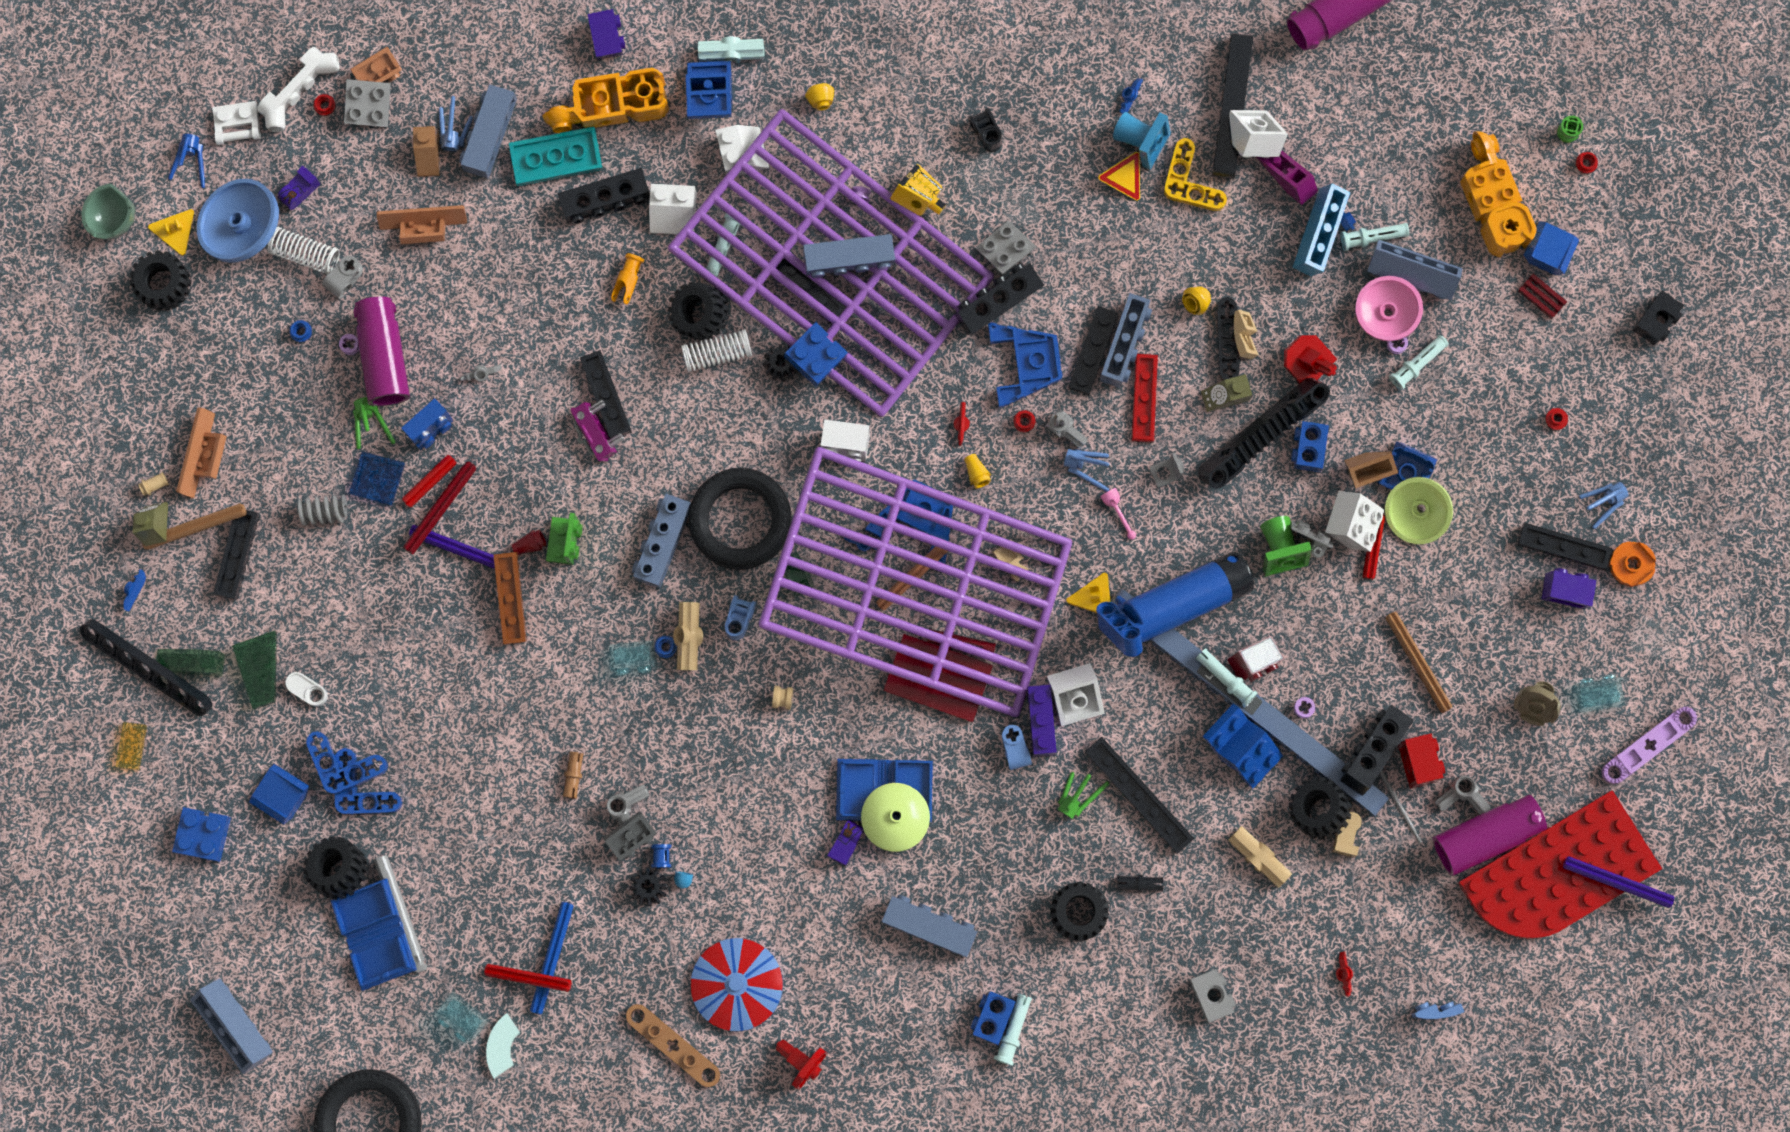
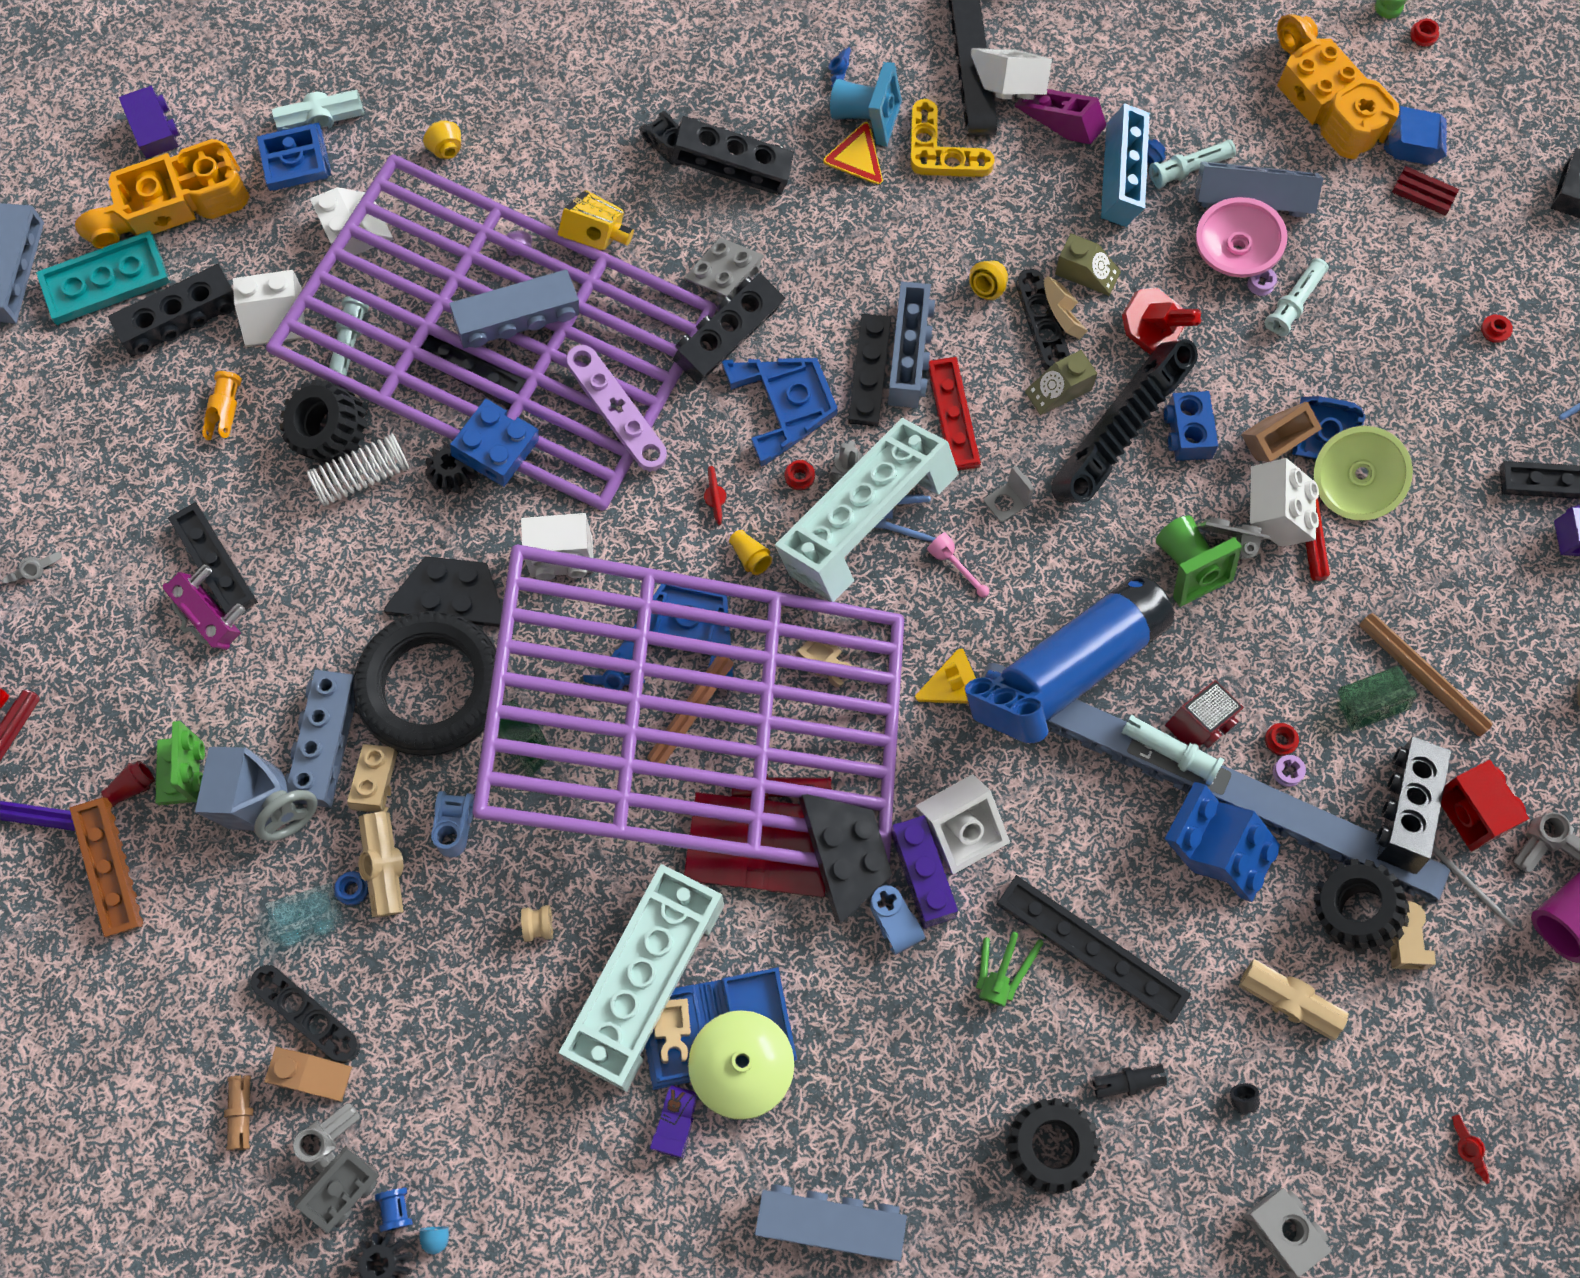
camera: 15 degrees left, 10 degrees down
(612, 571) = (249, 793): none -> sand blue piece
(621, 761) = (308, 1074): none -> medium nougat slope
(622, 723) = (302, 1017): none -> black beam
(691, 576) = (372, 779): none -> tan plate
(764, 452) = (449, 587): none -> black wing
(844, 747) = (641, 977): none -> light aqua plate
(857, 782) = (672, 1026): none -> tan plate
(899, 328) = (629, 424): none -> lavender piece
(994, 697) = (846, 851): none -> black wing
(999, 151) = (717, 157): none -> black brick
(1062, 456) = (823, 537): none -> light aqua plate
(1210, 910) = (1246, 1091): none -> black hinge
(1272, 304) = (1087, 265): none -> olive slope
(1313, 685) = (1288, 732): none -> red plate
(1377, 671) = (1376, 698): none -> clear green hinge

